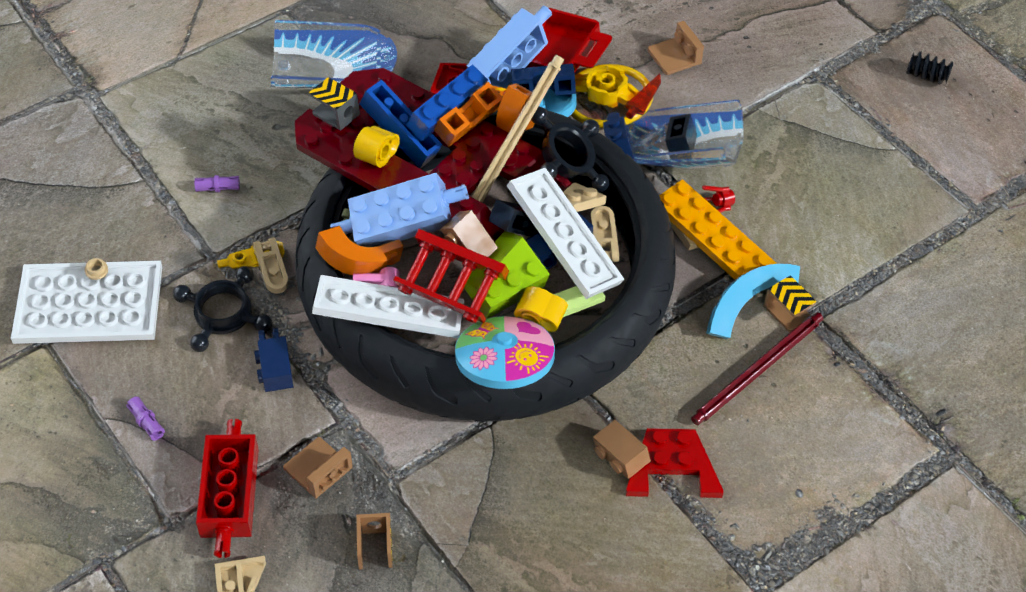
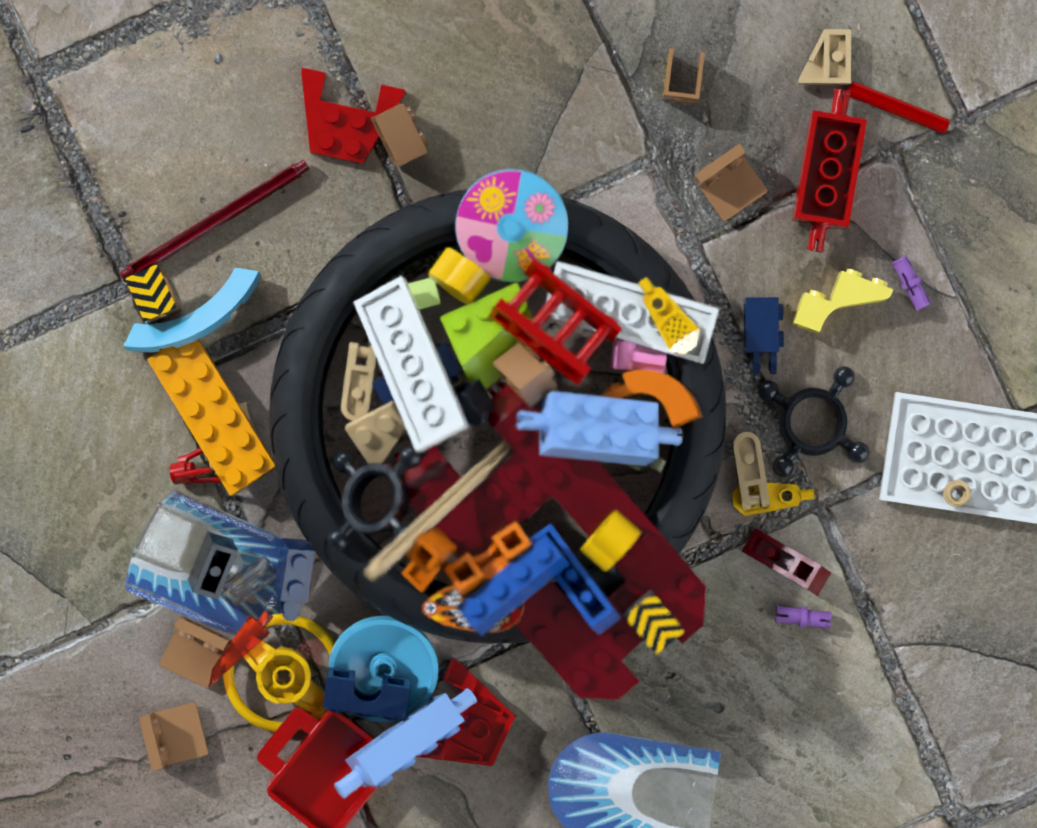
camera: 170 degrees left, 35 degrees up
(167, 556) = (898, 107): none -> red axle
(201, 399) = (847, 292): none -> light yellow arch
(233, 211) = (786, 562): none -> dark red slope
(354, 297) = (666, 315): none -> yellow piece
(675, 95) = (193, 651): none -> medium nougat bracket

